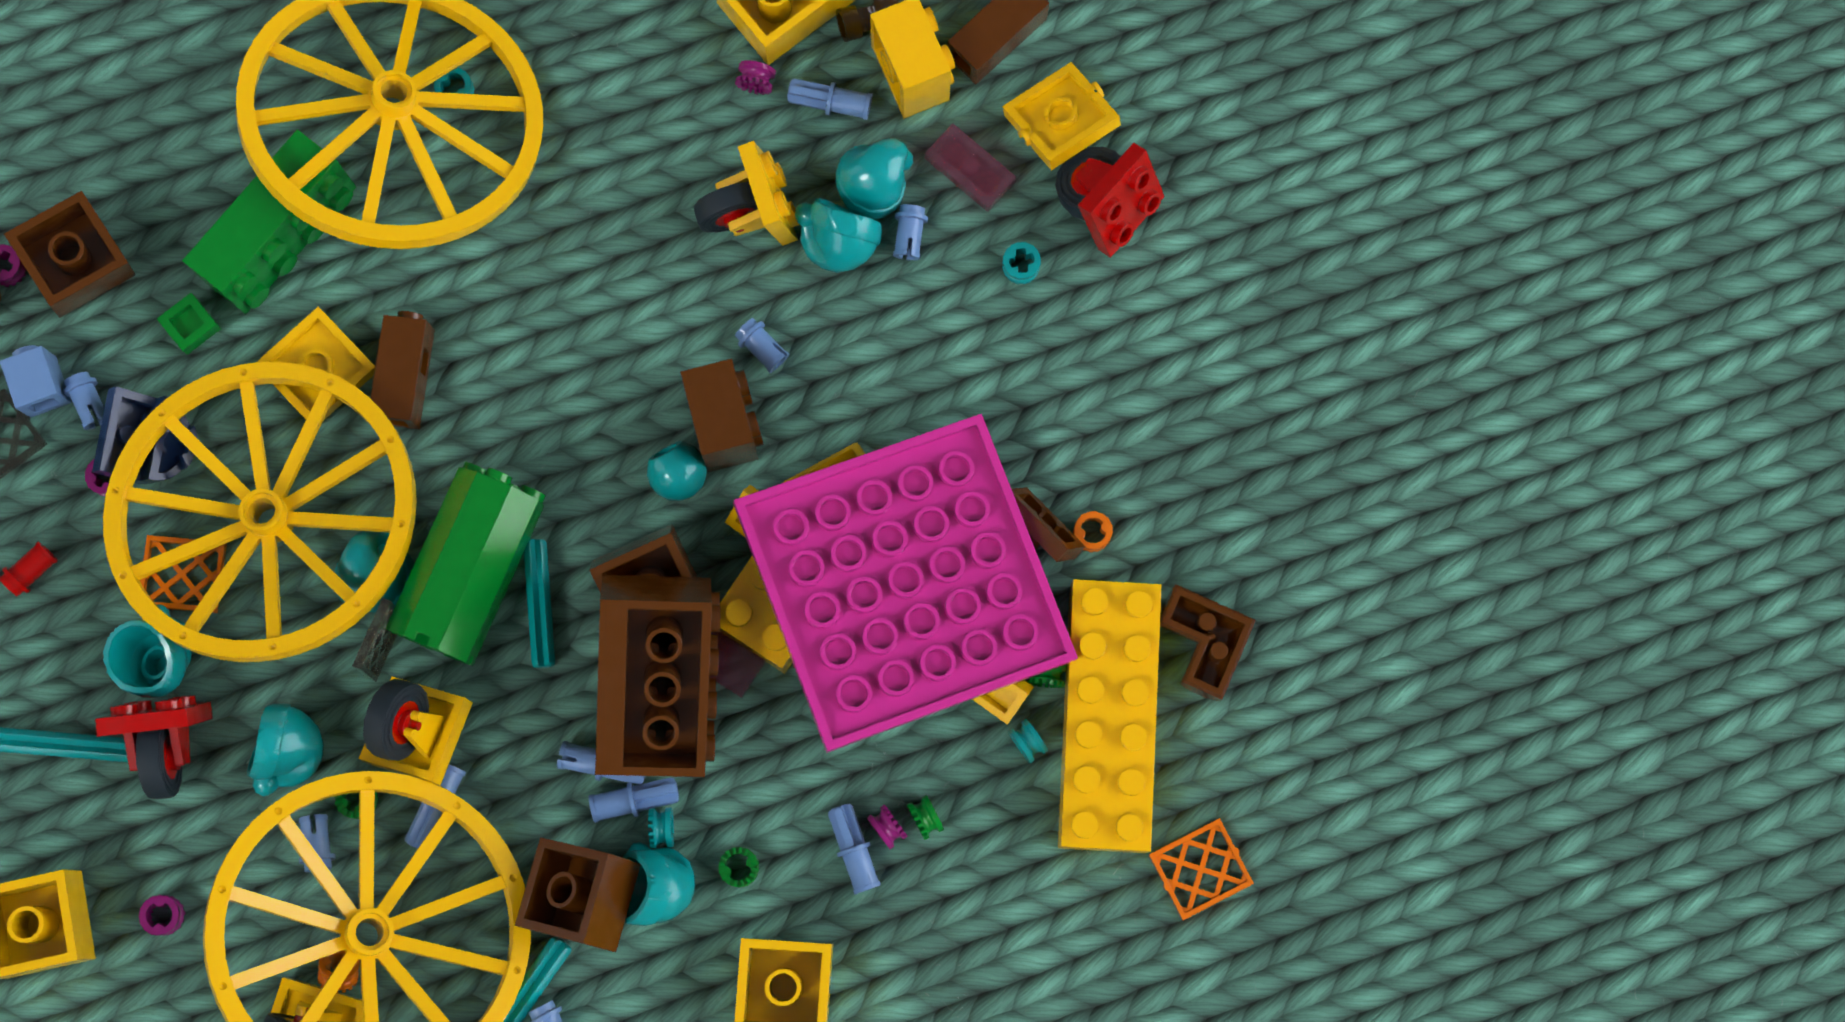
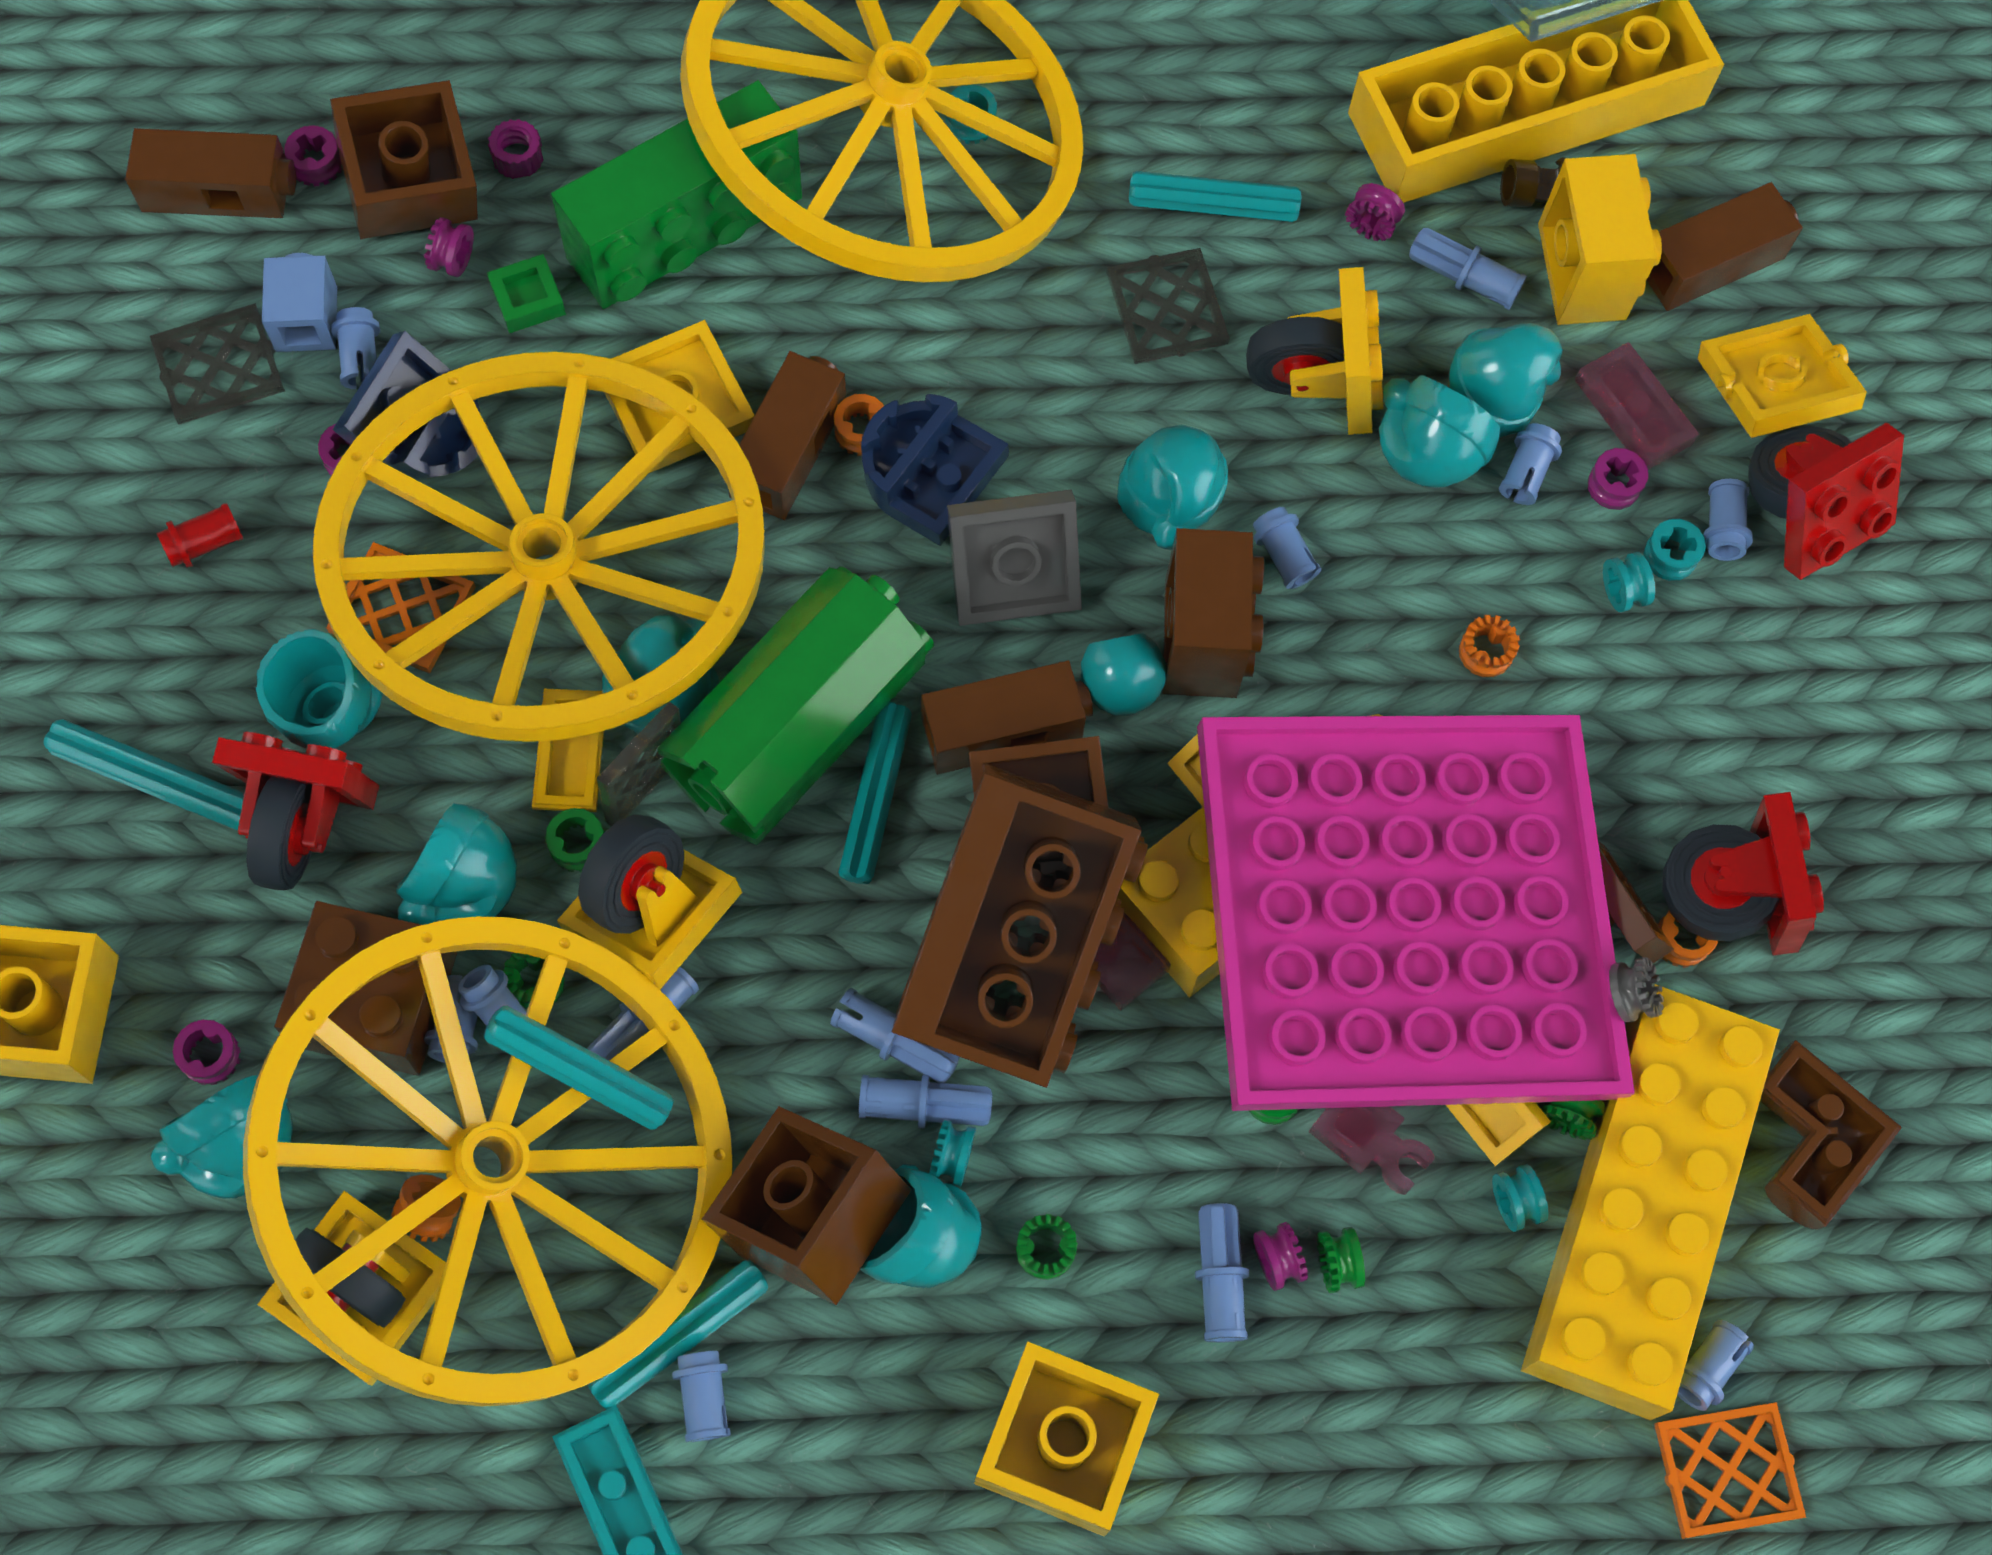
camera: 15 degrees right, 10 degrees down
(124, 306) = (450, 247): none -> magenta bush
(139, 203) = (515, 164): none -> magenta axle
(184, 974) = (209, 1140): none -> teal piece
(271, 861) = (386, 1013): none -> reddish brown brick
(331, 824) = (486, 992): none -> medium blue pin
(335, 658) = (568, 767): none -> yellow tile
(343, 708) = (557, 846): none -> green bush
(404, 857) = (578, 1067): none -> teal axle
(458, 336) = (845, 409): none -> orange bush
(503, 362) = (927, 458): none -> dark blue slope
(580, 415) = (1015, 557): none -> dark grey tile
(608, 525) = (1003, 713): none -> reddish brown brick
(616, 163) = (1155, 266): none -> clear smoke window
(641, 98) = (1215, 196): none -> teal axle
(673, 324) = (1172, 482): none -> teal piece
(919, 360) = (1498, 633): none -> orange bush
(924, 732) = (1368, 1135): none -> clear pink plate
(971, 210) = (1619, 462): none -> magenta bush
(995, 298) = (1629, 582): none -> teal bush
(1051, 231) = (1728, 531): none -> medium blue pin
(1061, 590) = (1635, 990): none -> dark grey bush
(1109, 491) = (1736, 880): none -> plate
(1173, 809) = (1713, 1365): none -> medium blue pin

